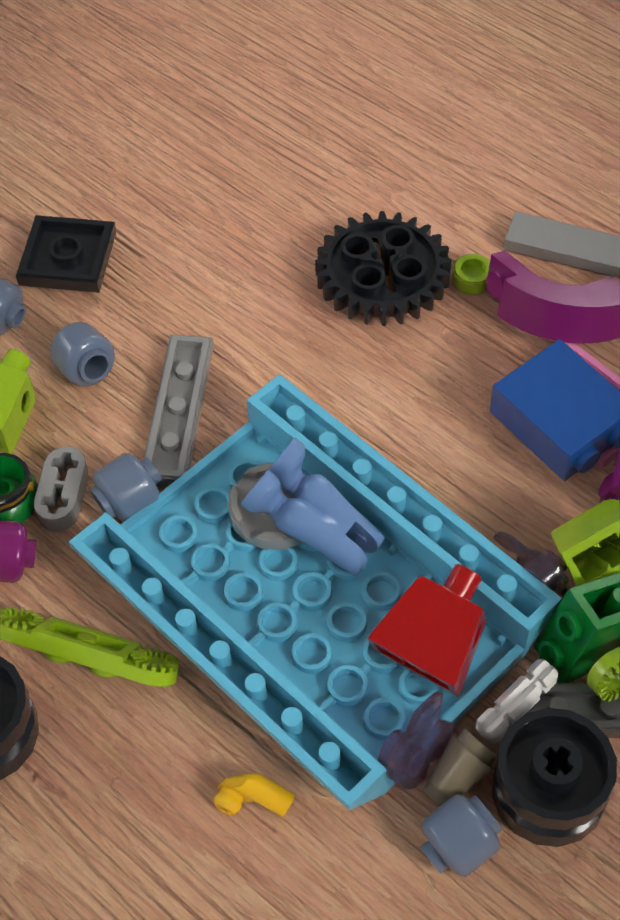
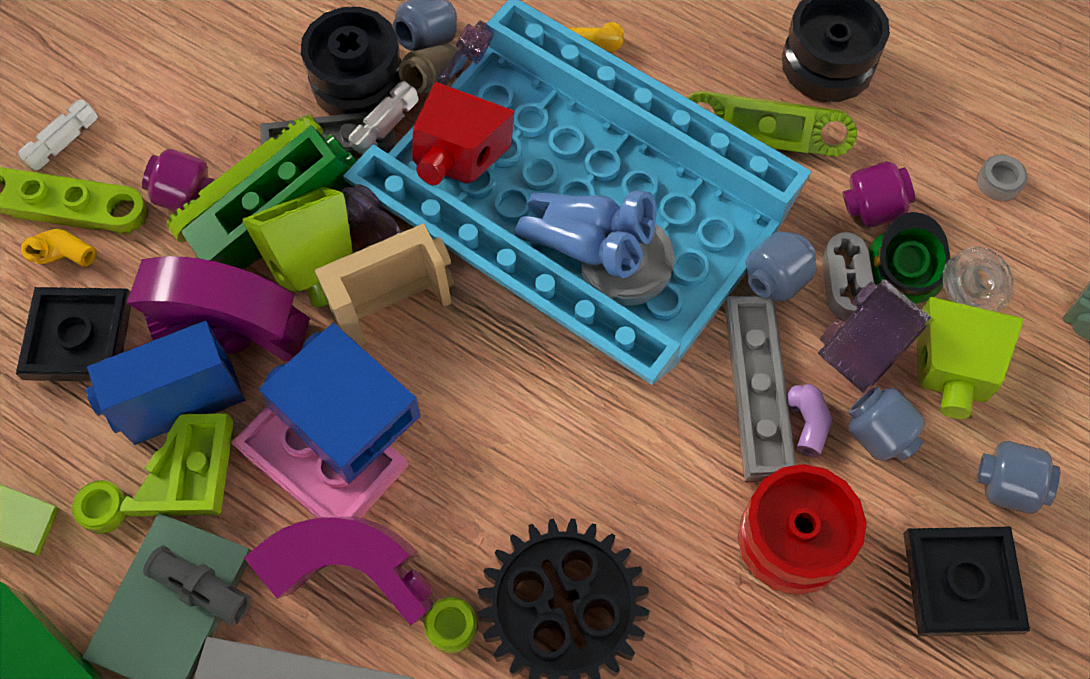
camera: 170 degrees right, 10 degrees up
(64, 405) = (873, 334): none -> clear purple brick
(138, 375) = (816, 415): none -> lavender arm
(184, 281) = (828, 524): none -> red wheel
(528, 504) = (384, 277): none -> tan panel

